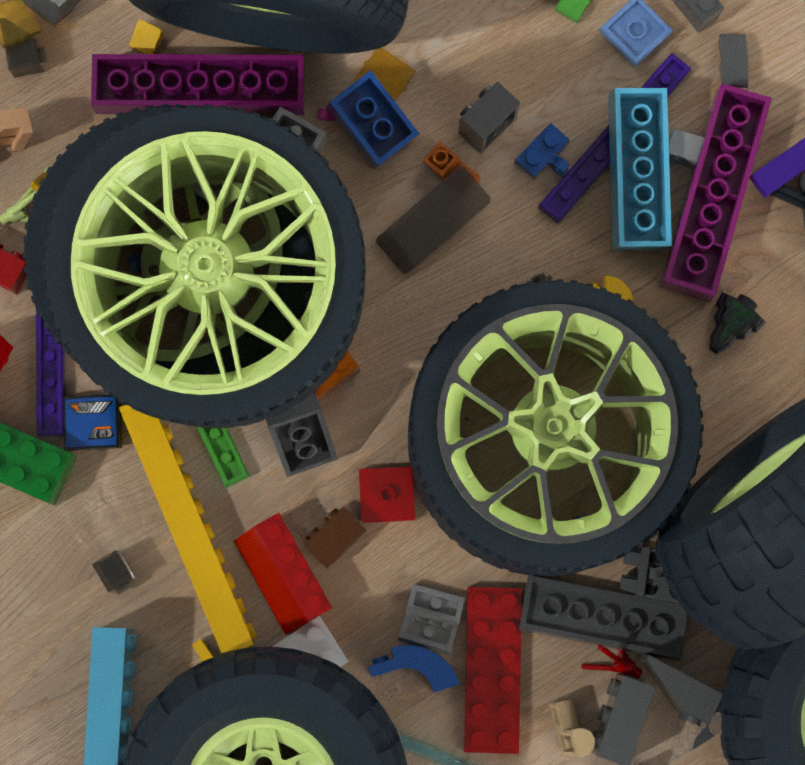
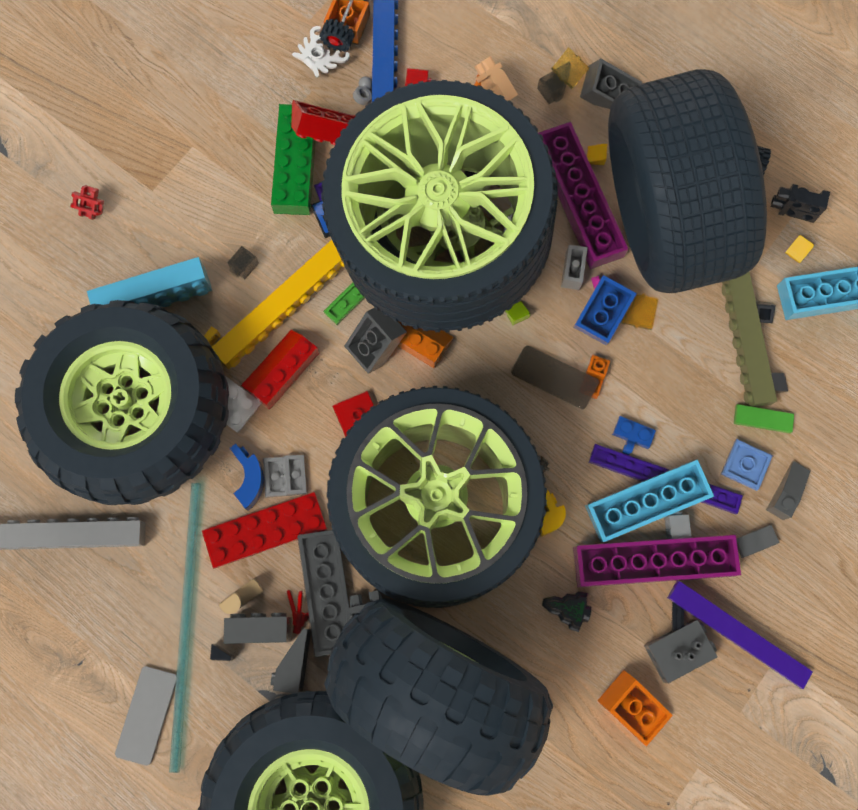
camera: 70 degrees right, 5 degrees down
(334, 537) = (315, 391): reddish brown piece -> none
(488, 116) = (640, 385): dark grey brick -> none

